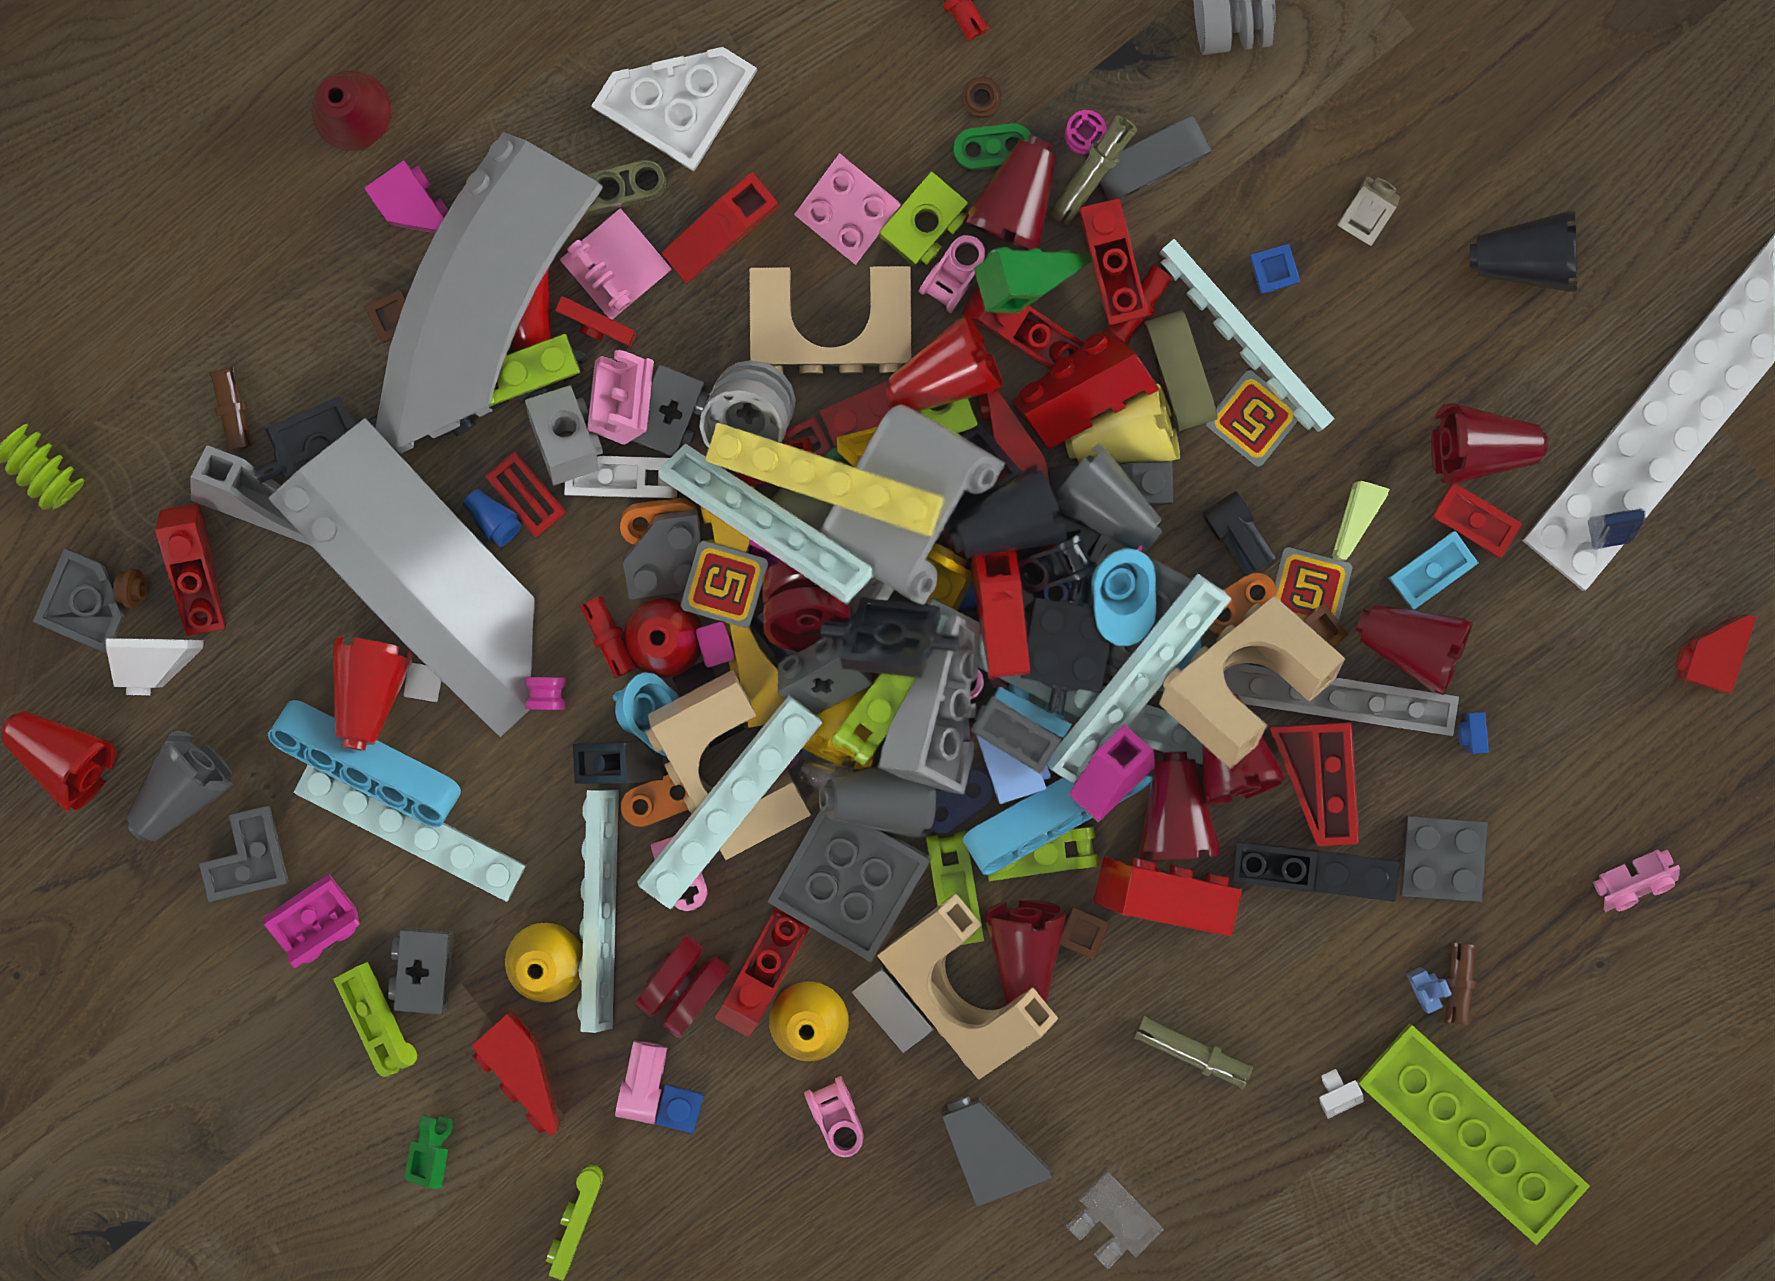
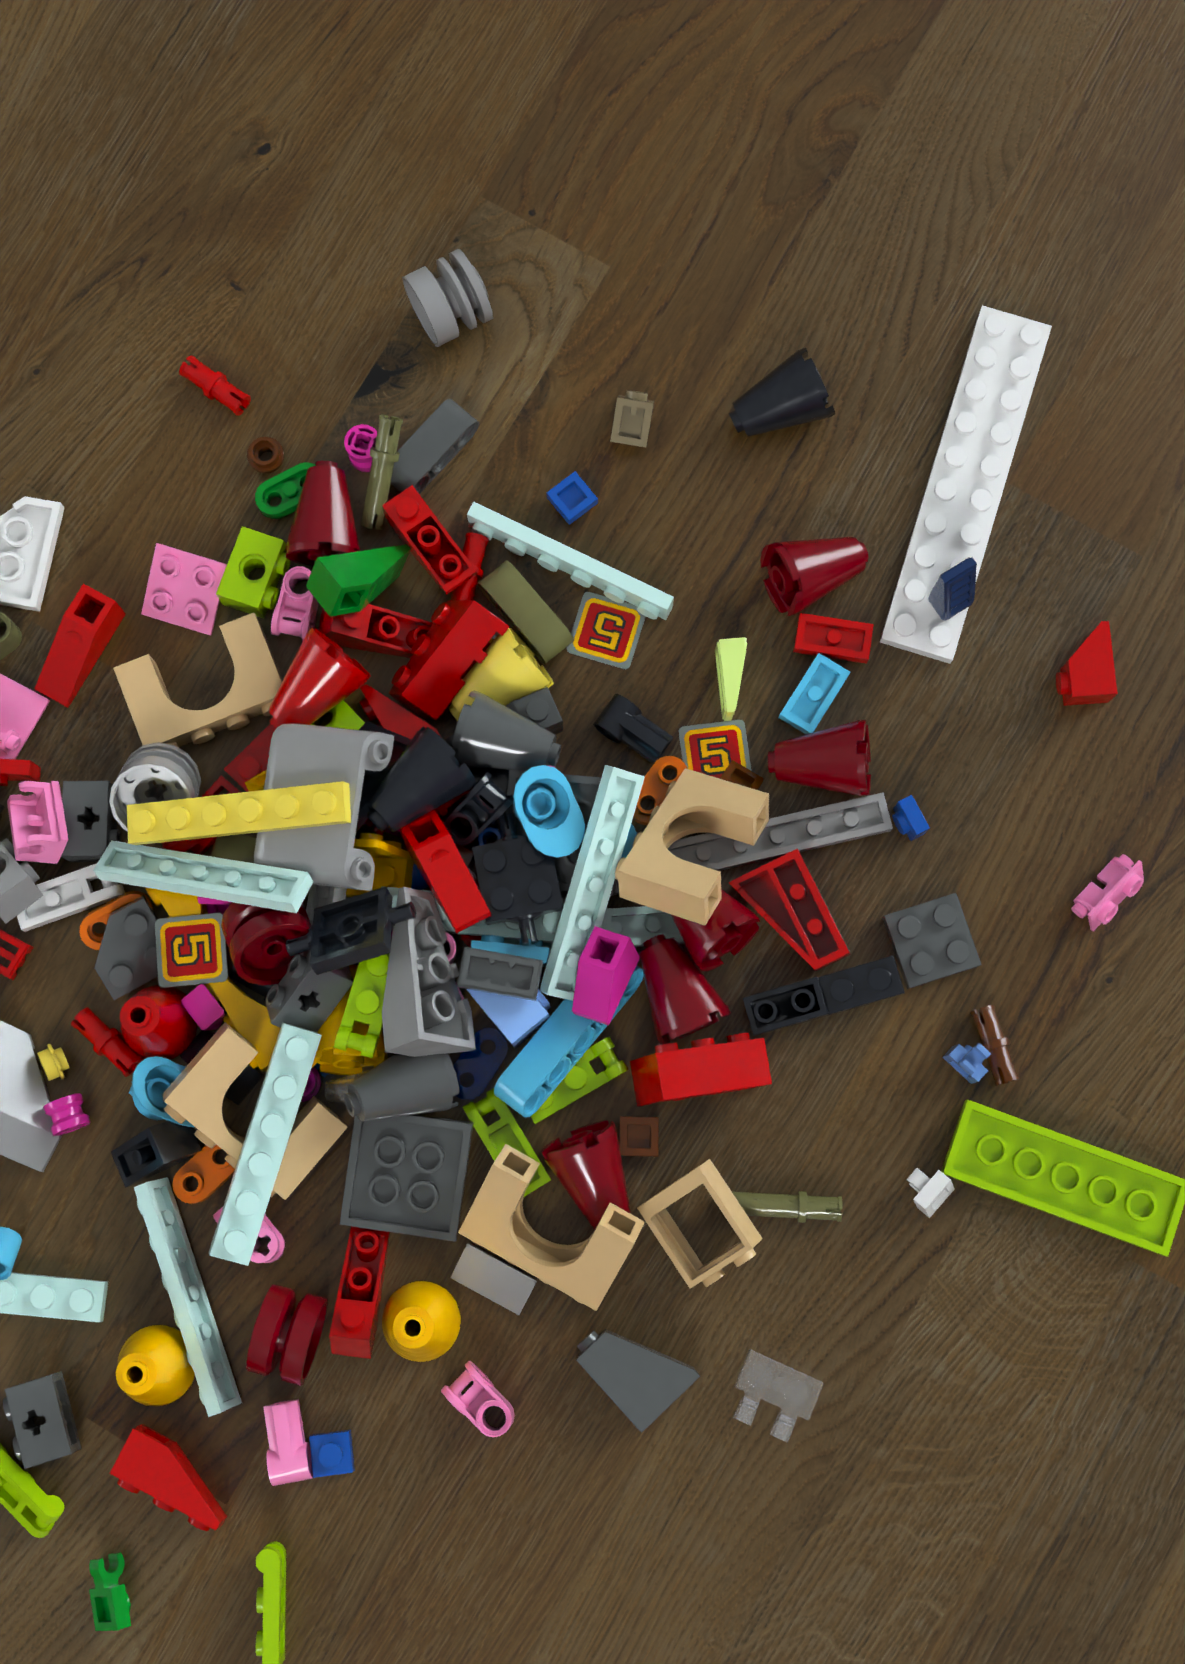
camera: 15 degrees left, 10 degrees down
(549, 636) = (53, 1062): none -> light yellow plate
(1077, 1047) = (675, 1243): none -> tan window

